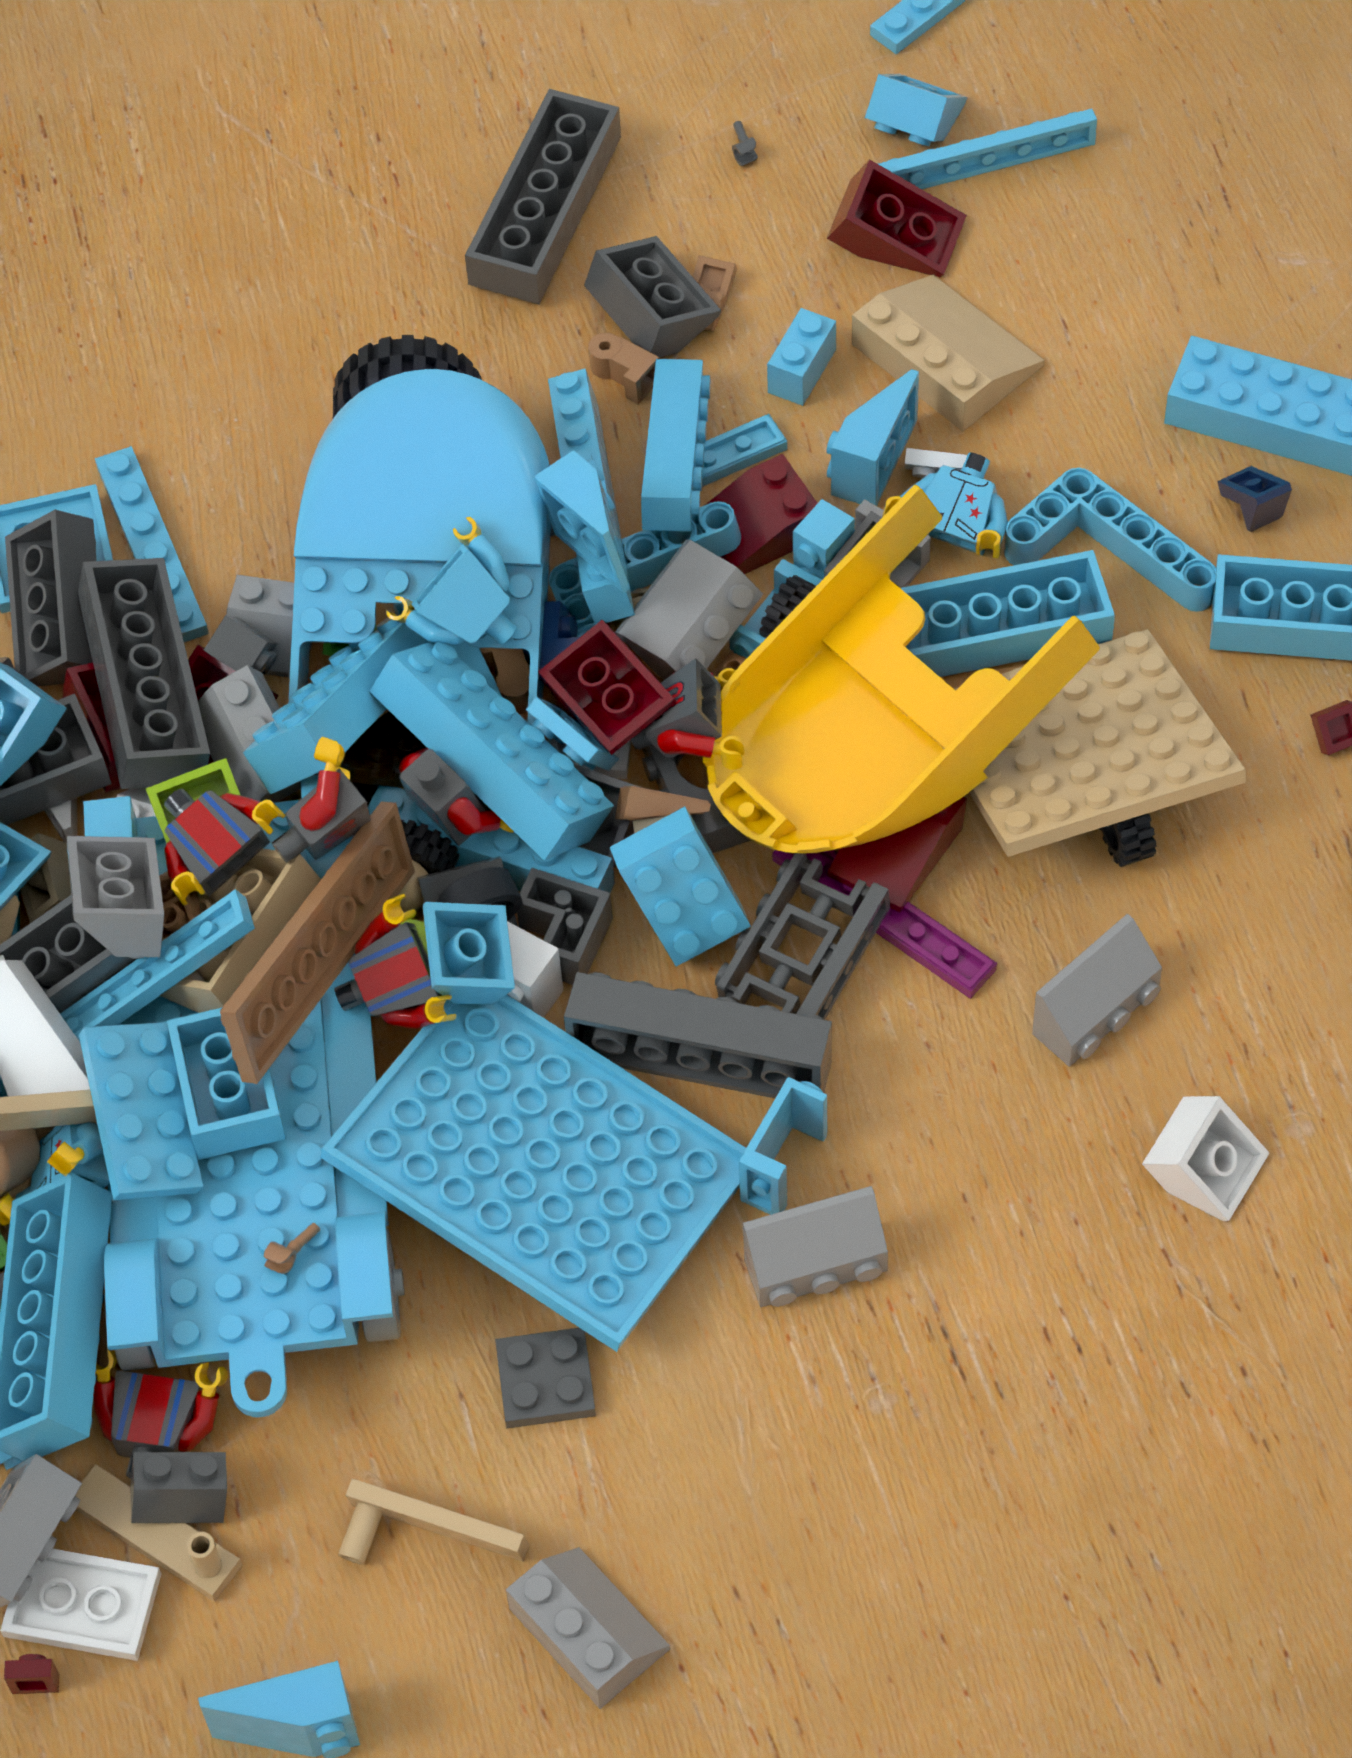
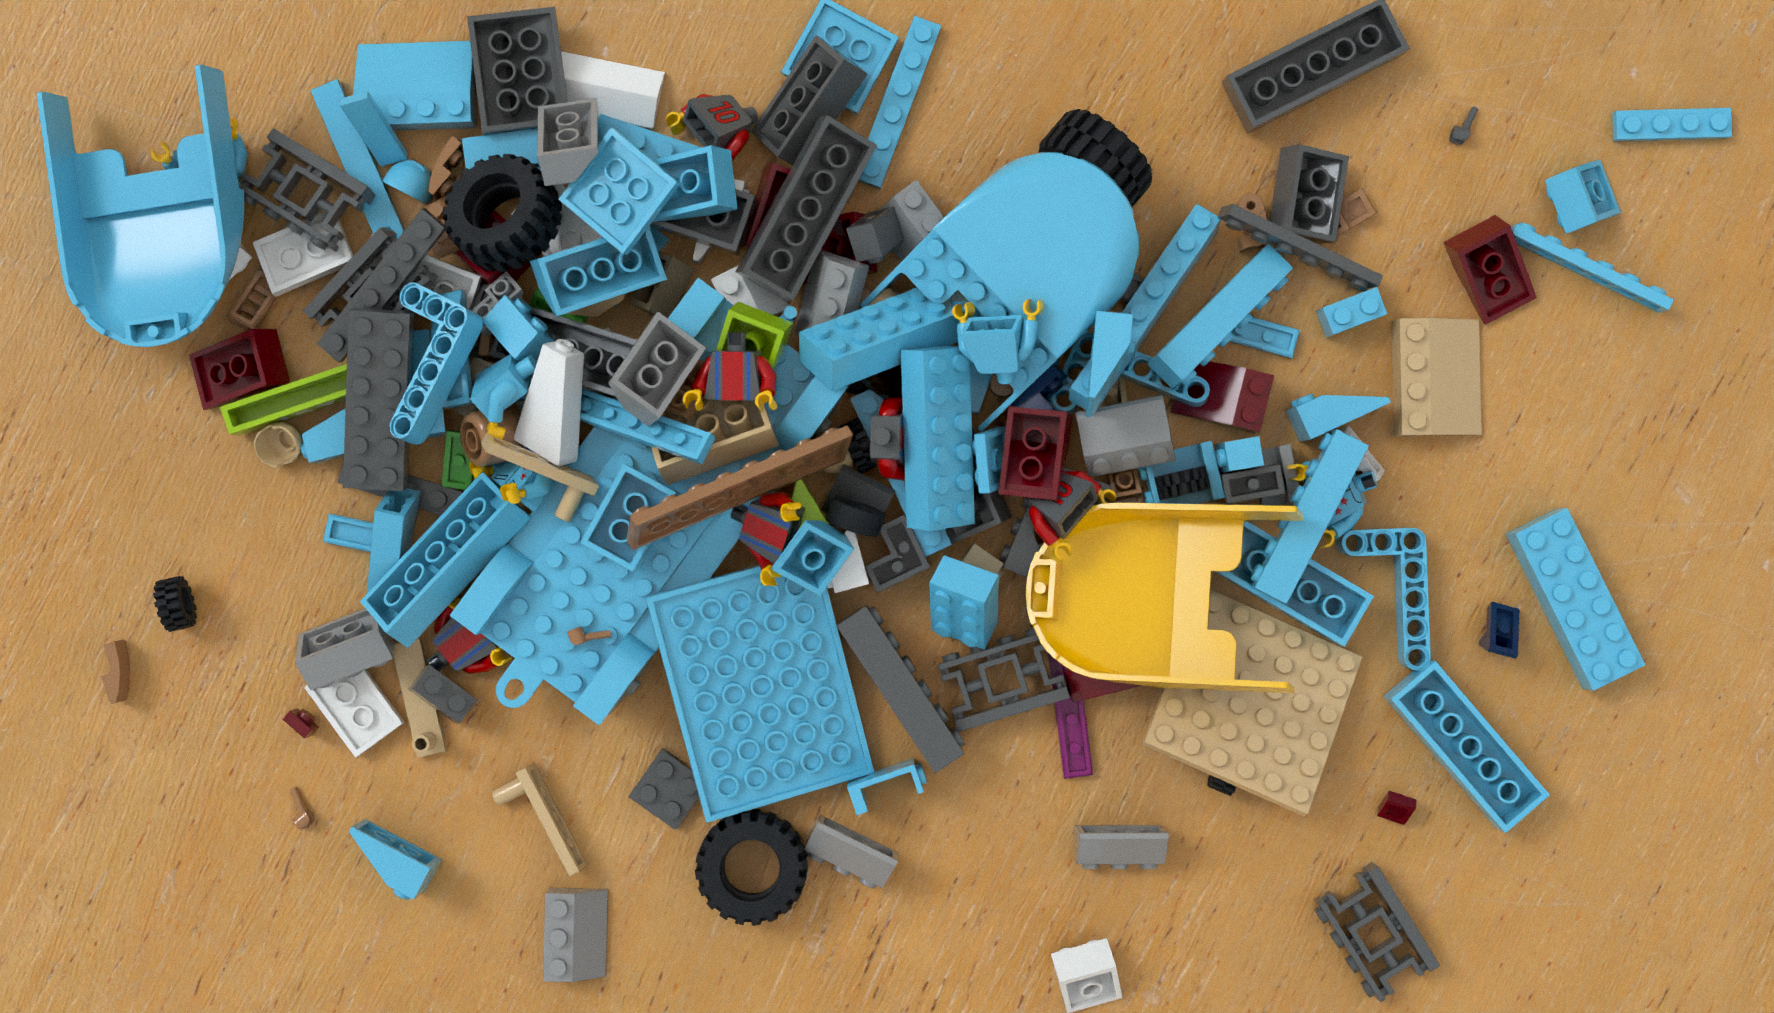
camera: 40 degrees right, 30 degrees up
(140, 1111) = (571, 497): medium azure plate -> none
(326, 813) = (801, 422): torso -> none
(646, 803) = (996, 541): medium nougat slope -> none
(685, 334) = (1291, 243): none -> dark grey plate
(711, 1307) = (743, 905): none -> black tyre
(956, 544) = (1317, 501): none -> medium azure brick

